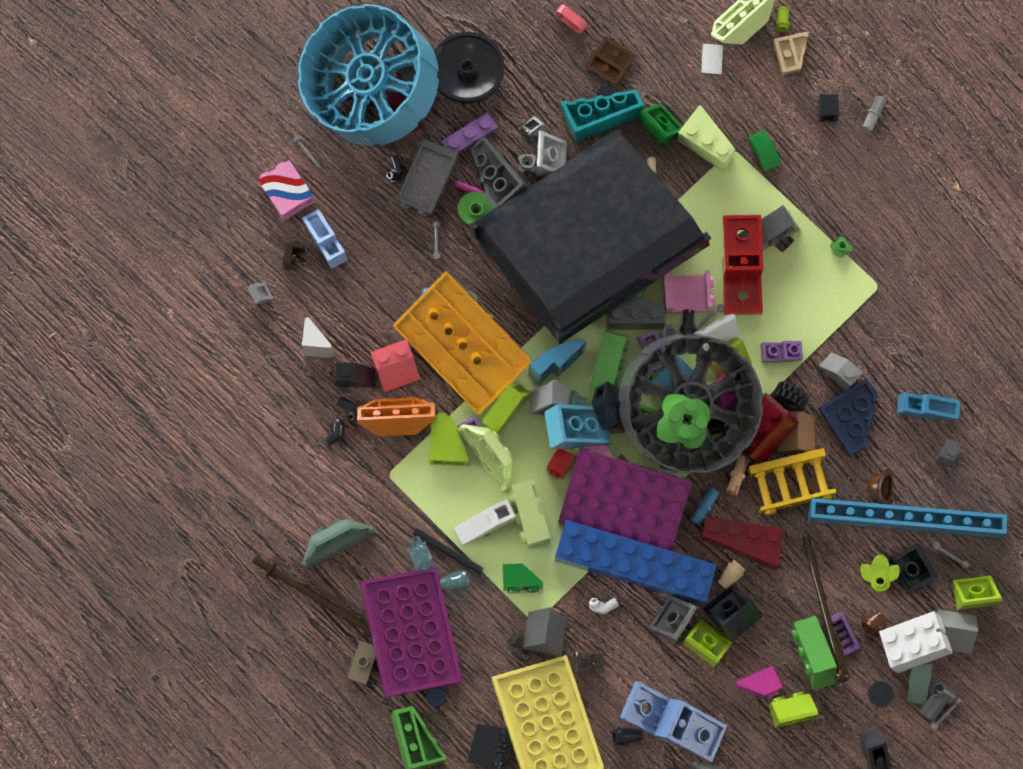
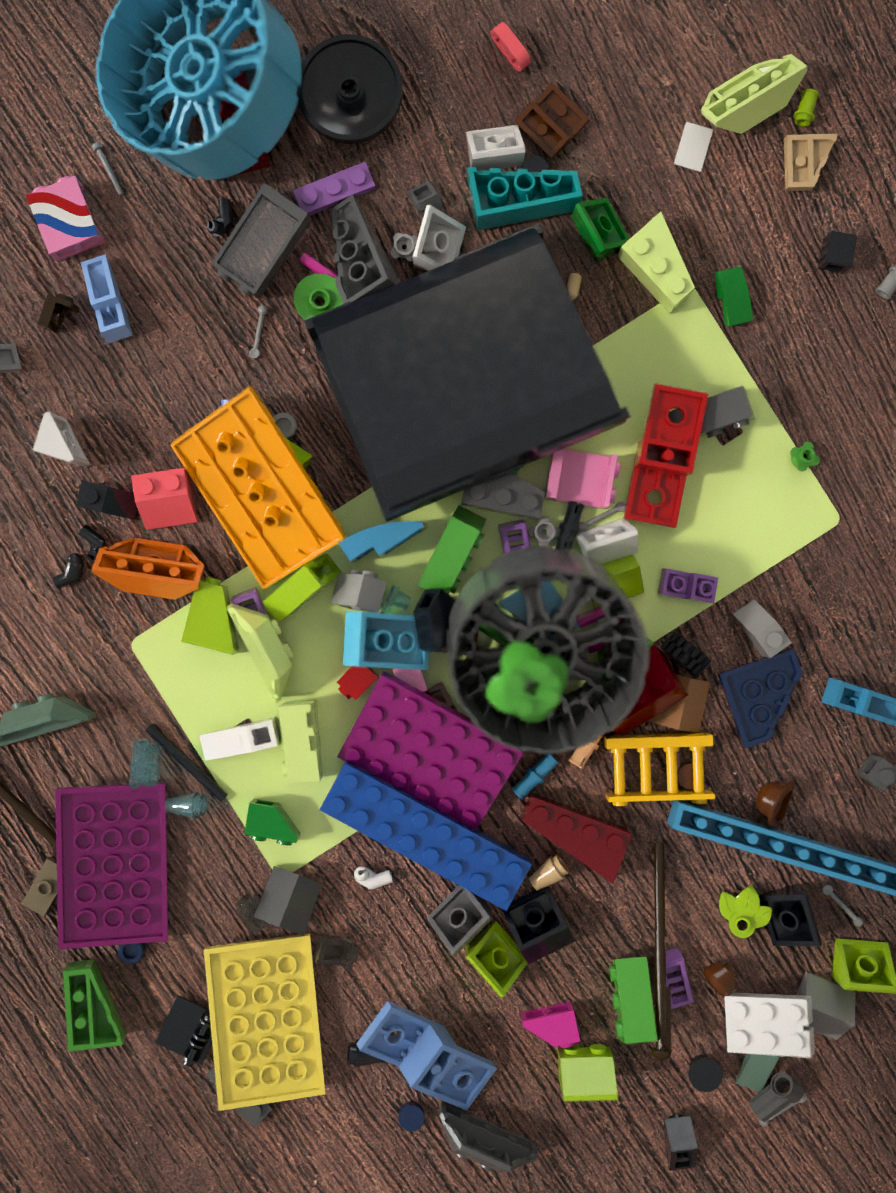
camera: 20 degrees right, 15 degrees up
(576, 86) = (496, 147): none -> white slope

